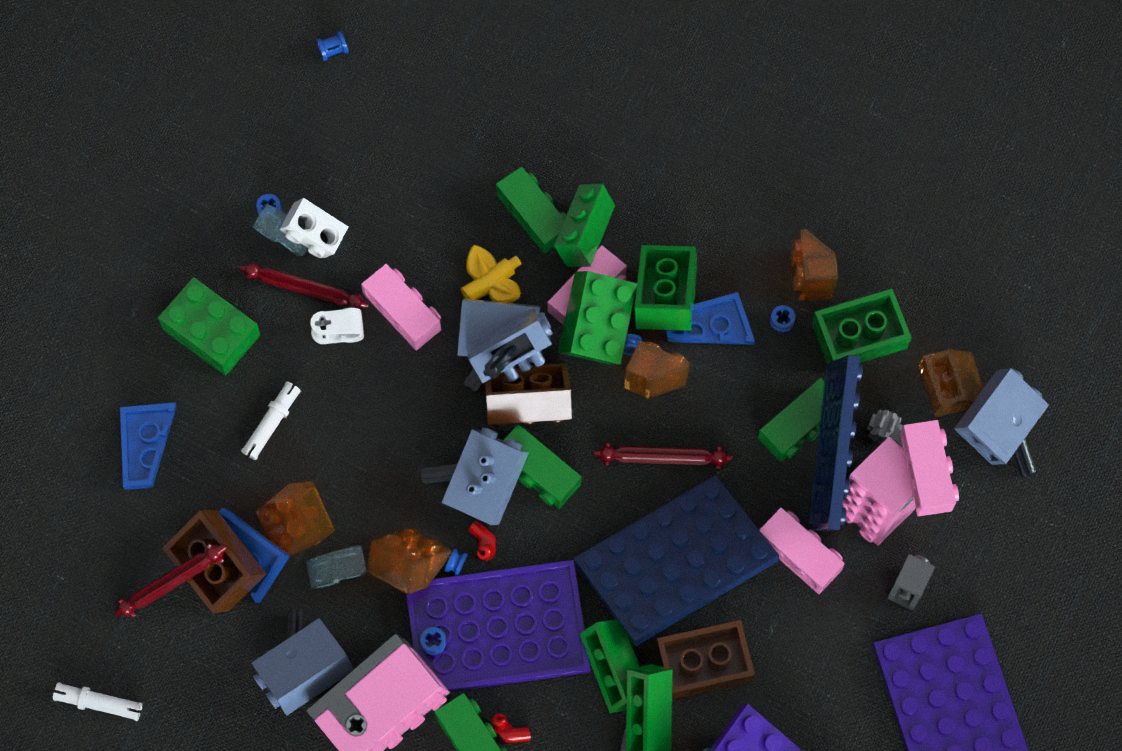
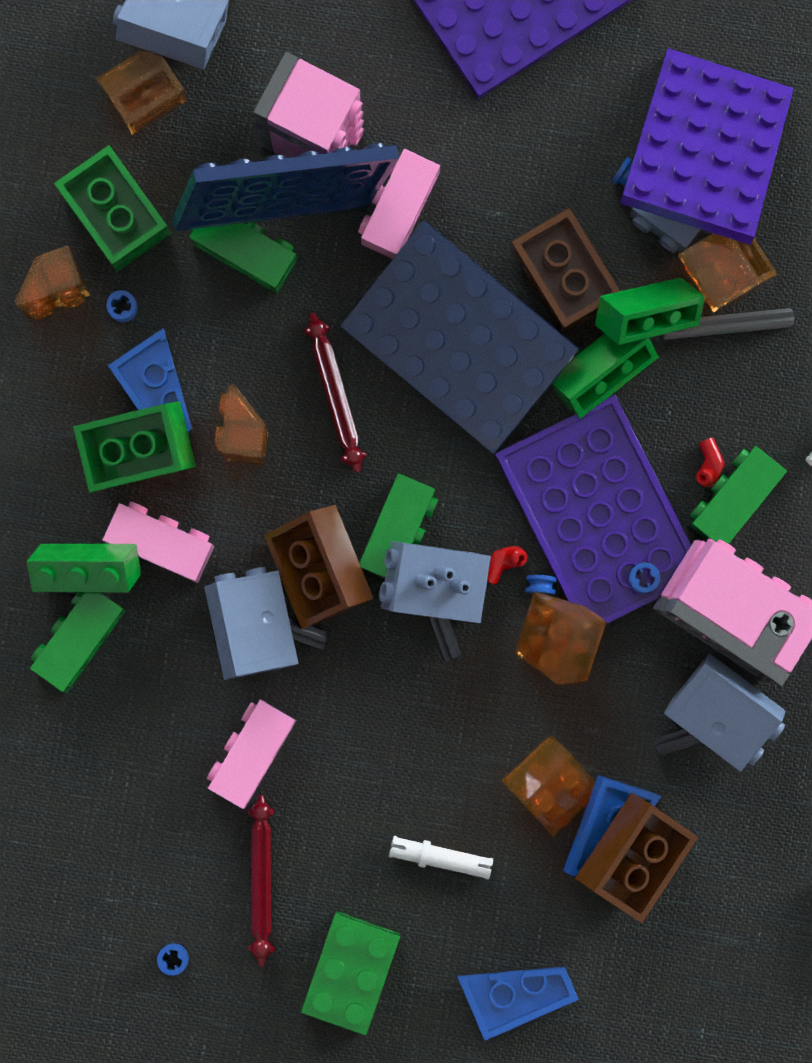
camera: 110 degrees left, 15 degrees up
(170, 580) = (676, 897): dark red wheel -> none
(270, 222) = (199, 928): clear light blue slope -> none
(315, 222) = (186, 891): white brick -> none
(336, 566) = (590, 719): clear light blue slope -> none
(341, 326) = (297, 813): white piece -> none
(491, 277) = (180, 660): yellow plant -> none
(511, 346) = (281, 598): sand blue piece -> none
(597, 317) = (200, 514): green brick -> none
(631, 343) = (212, 472): blue bush -> none
(883, 425) = (222, 148): light grey gear -> none
(911, 581) = (400, 69): dark grey brick -> none
(929, 468) = (297, 59): bright pink brick -> none

